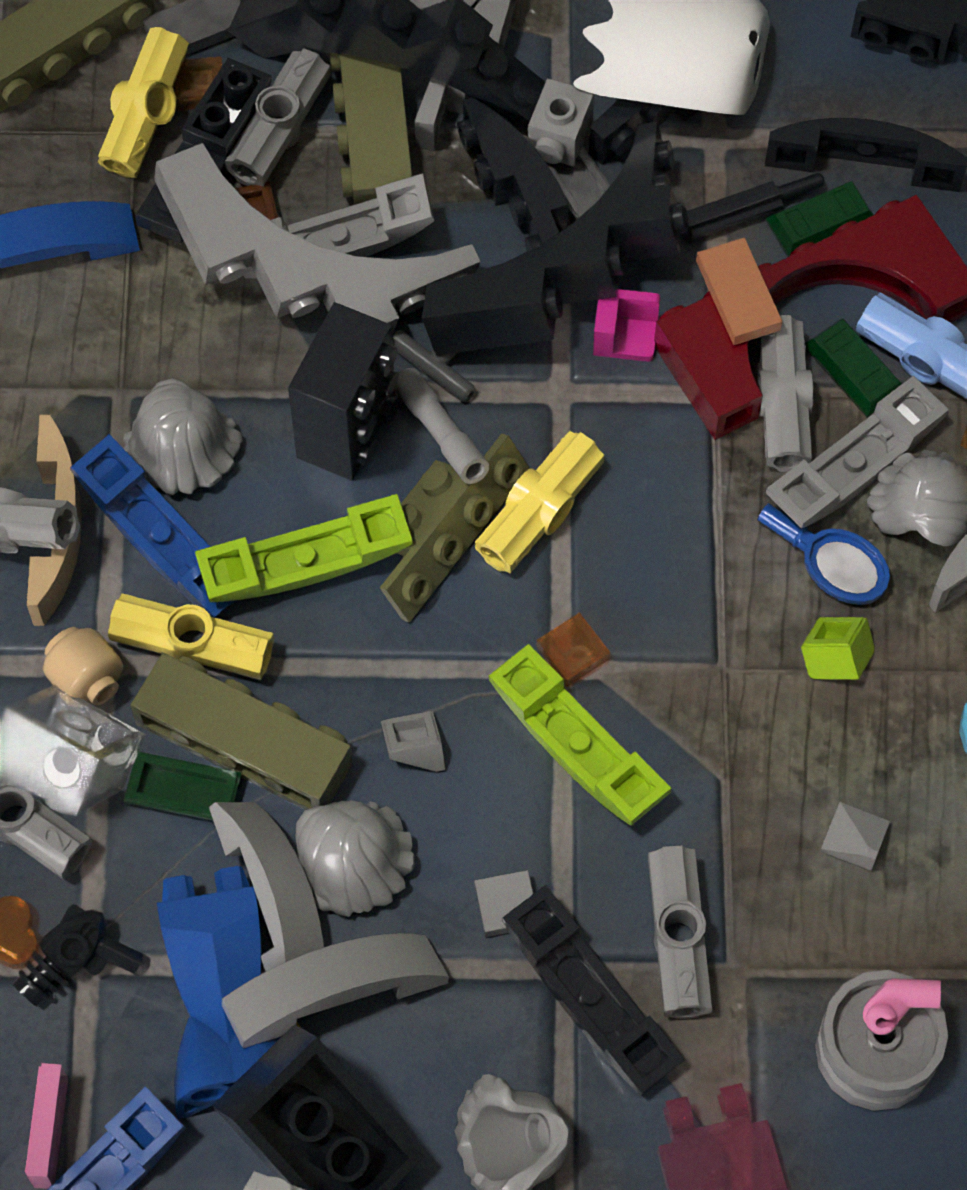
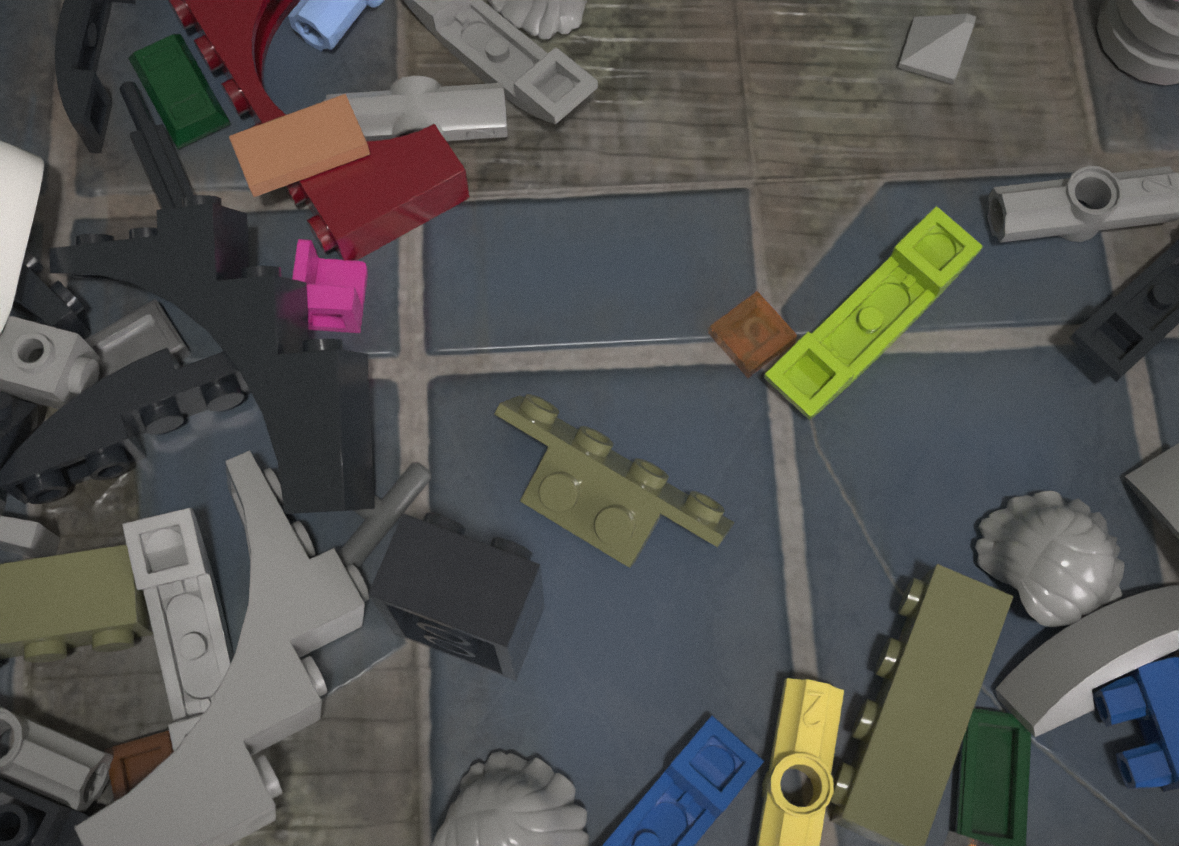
camera: 95 degrees left, 5 degrees up
(305, 555) = (673, 650): lime slope -> none
(414, 741) = (889, 505): light grey slope -> none
(454, 444) = (516, 466): light grey piece -> none
(498, 897) = (1072, 390): light grey tile -> none
(539, 502) = (573, 373): light yellow piece -> none
(835, 559) = (625, 61): blue piece -> none
(838, 648) = (726, 62): lime slope -> none
(853, 365) = (374, 52): dark green tile -> none

